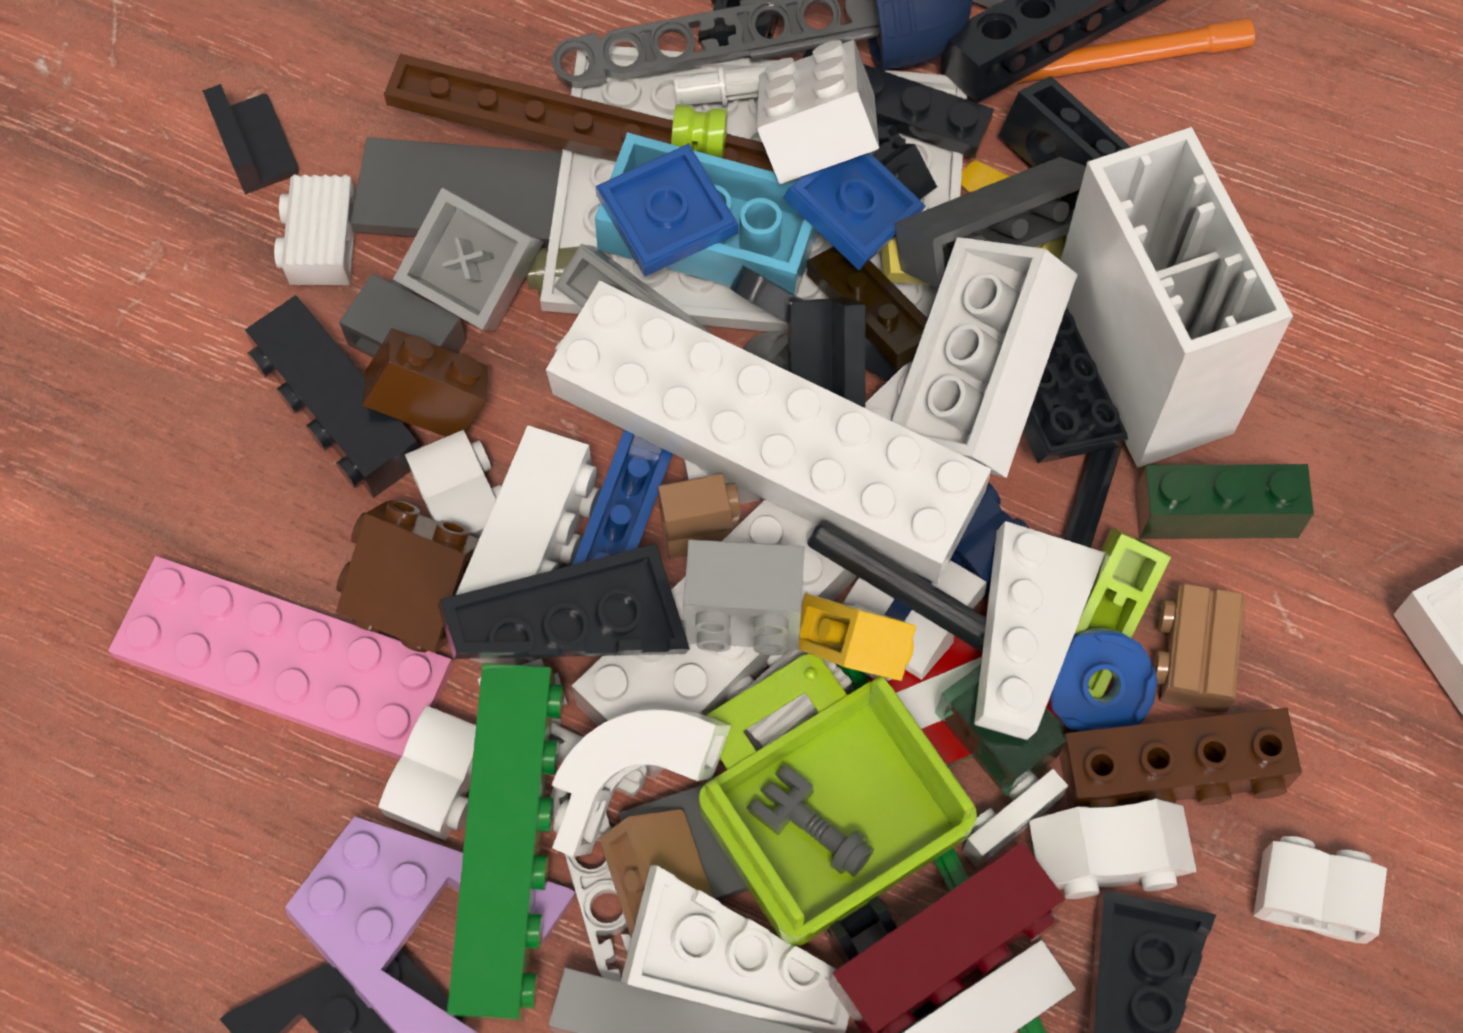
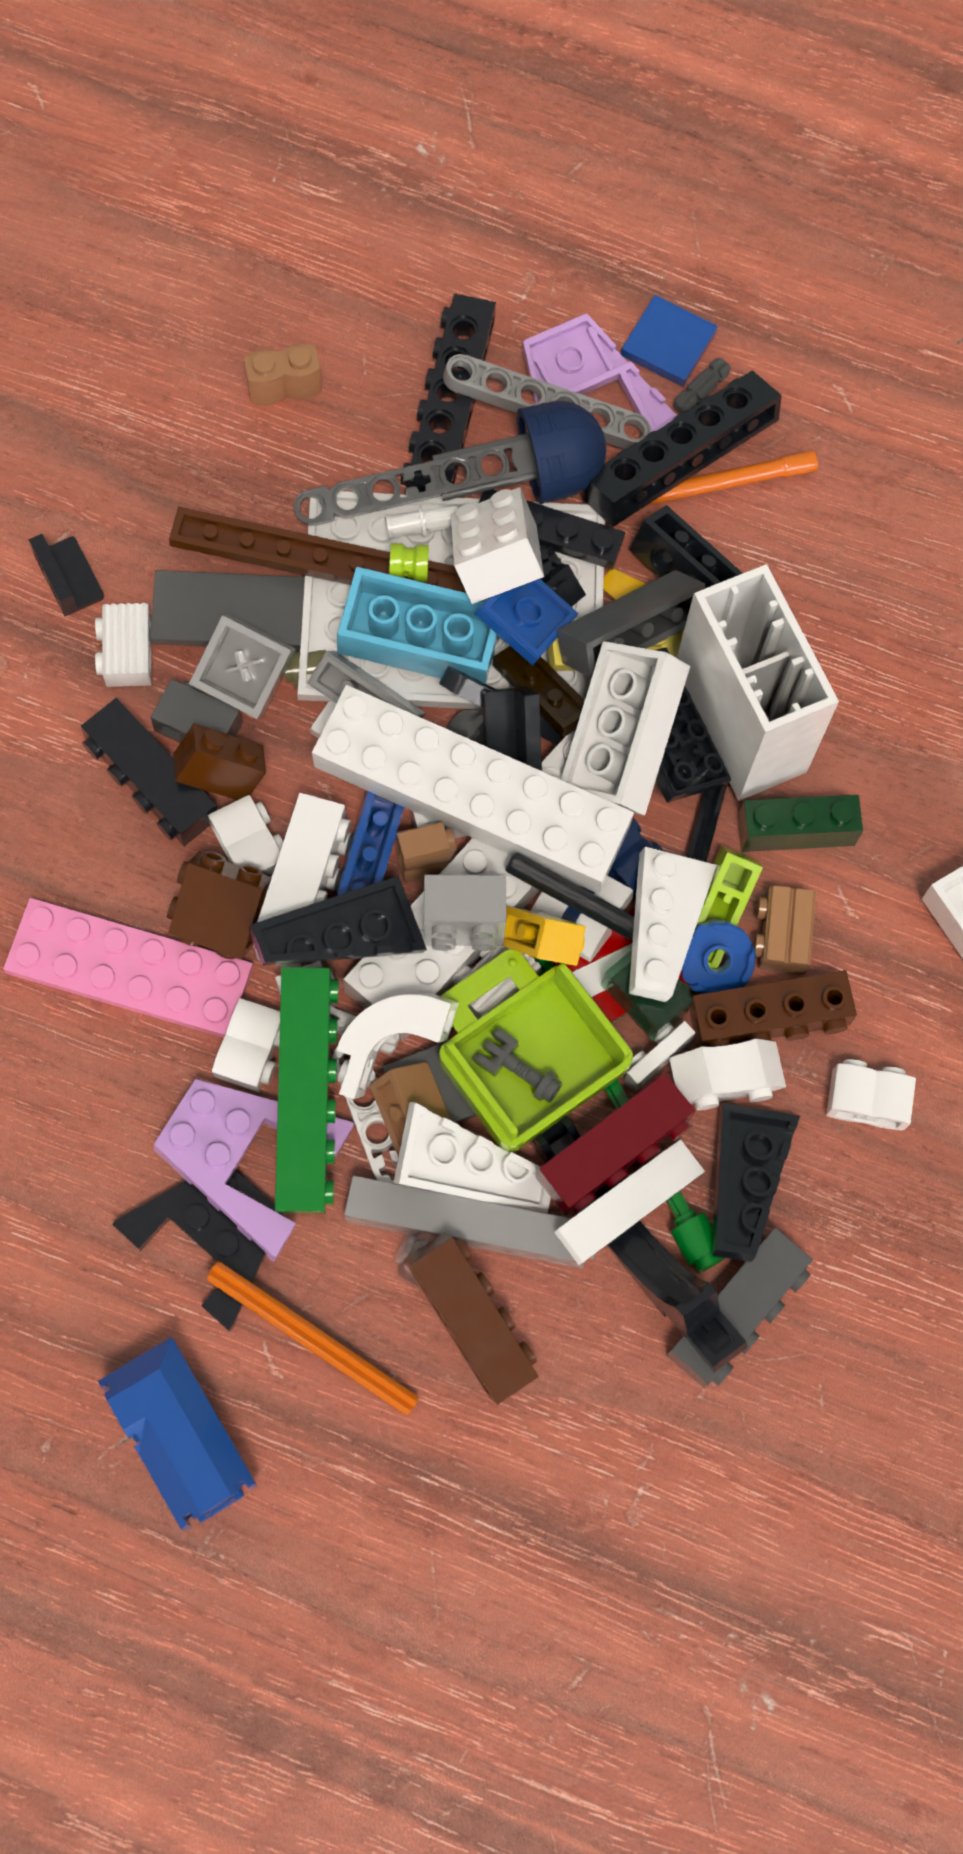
camera: 10 degrees left, 5 degrees up
(666, 209) = (390, 626): blue tile -> none

